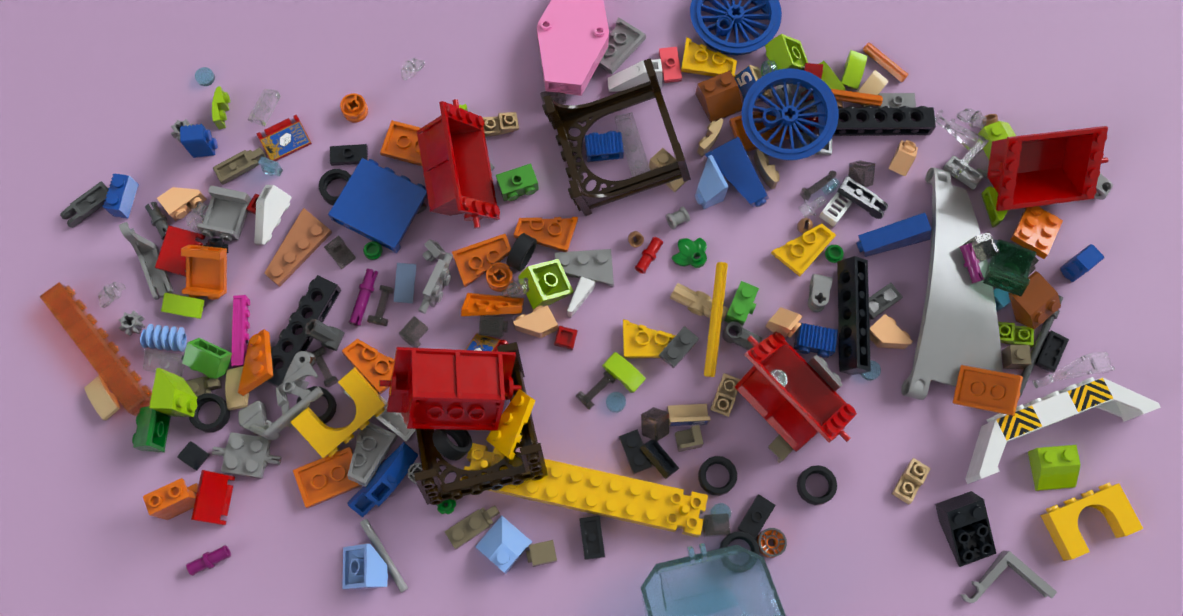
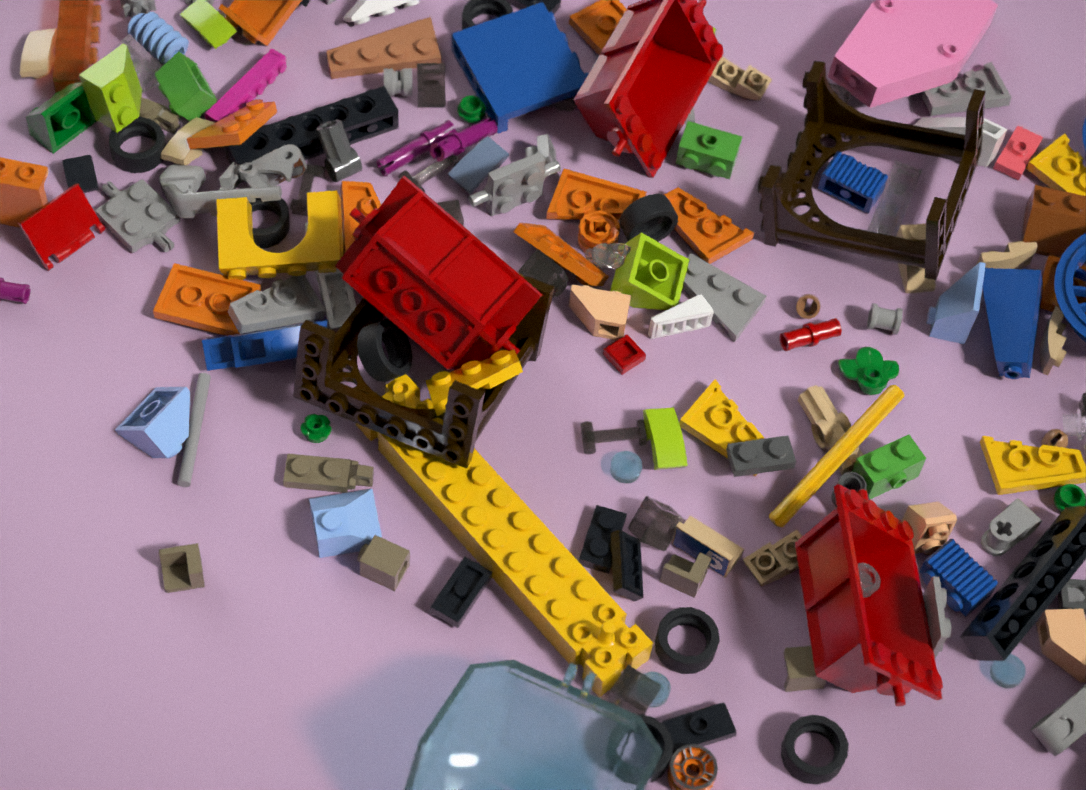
camera: 35 degrees right, 15 degrees down
(317, 267) = (398, 81): none -> light grey wheel
(385, 280) = (457, 141): none -> magenta pin

